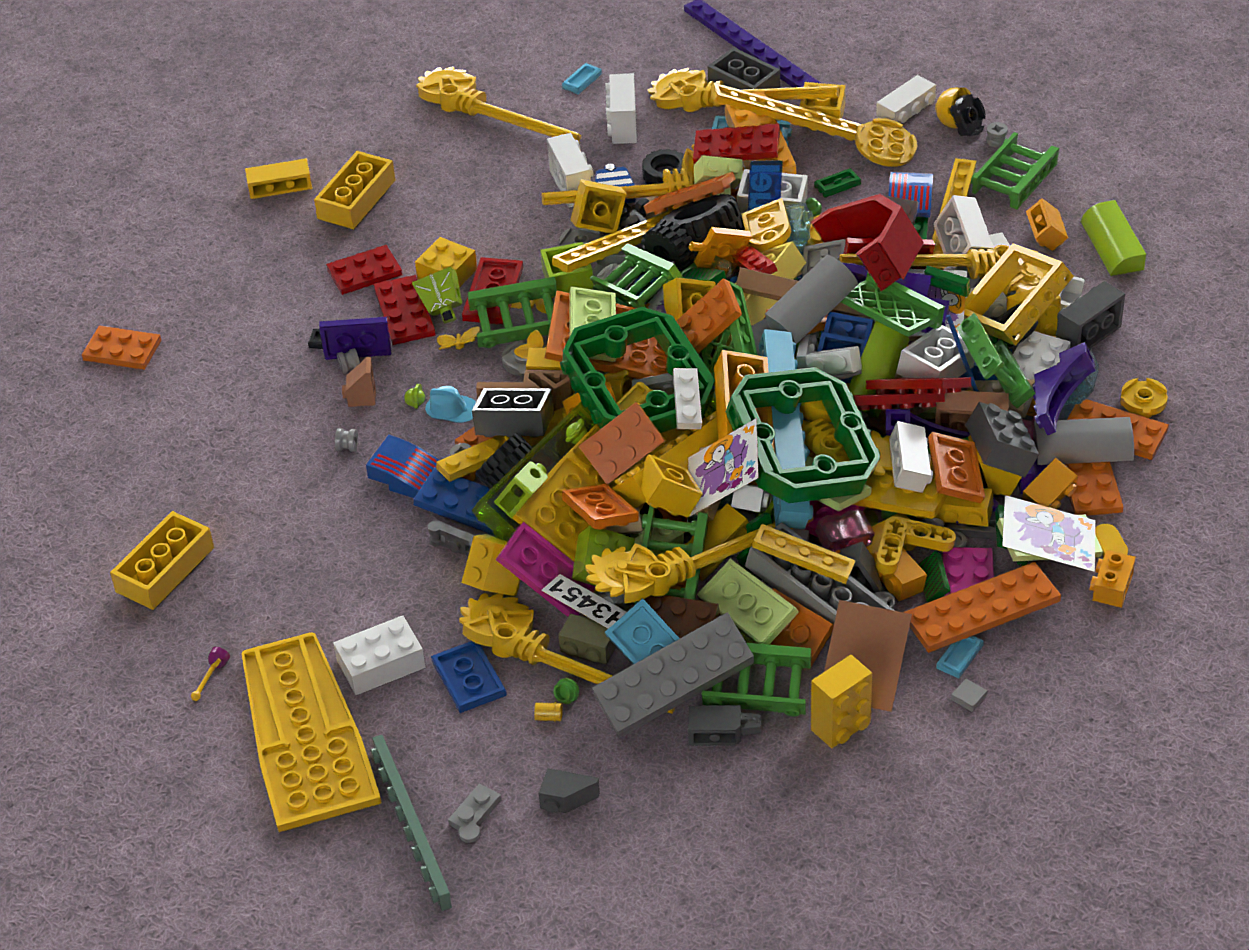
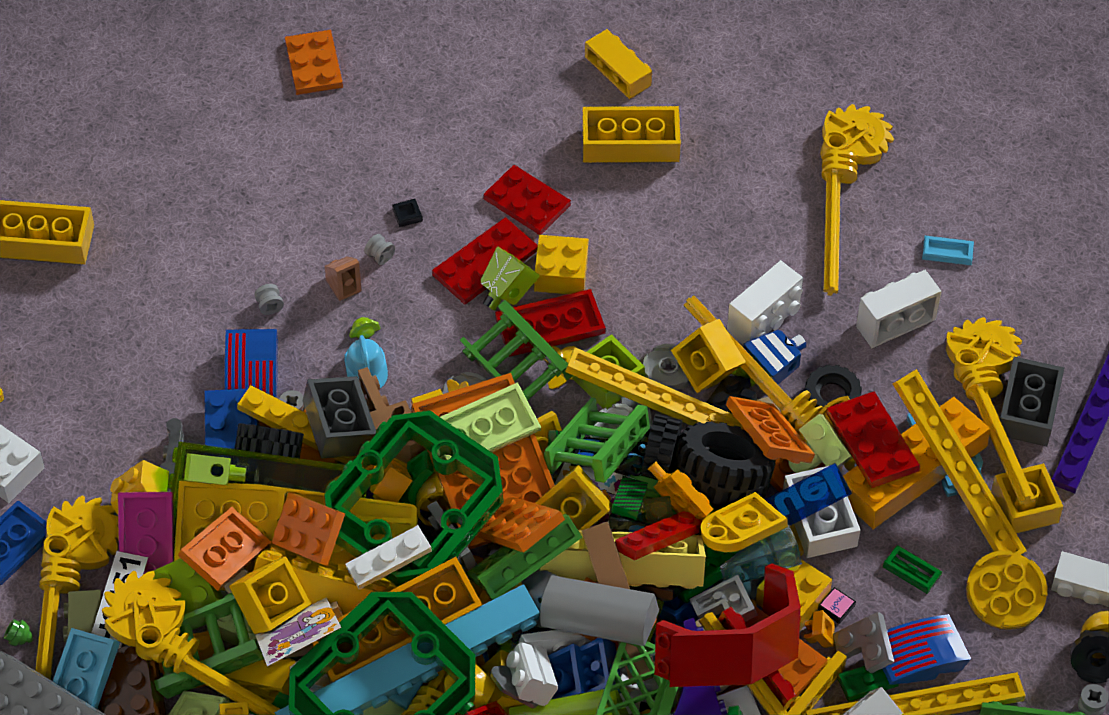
camera: 60 degrees right, 10 degrees up
(366, 335) = (403, 239): dark purple tile -> none
(447, 341) = (458, 326): yellow piece -> none
(576, 431) = (319, 481): lime piece -> none
(814, 206) = (848, 560): bright green plate -> none

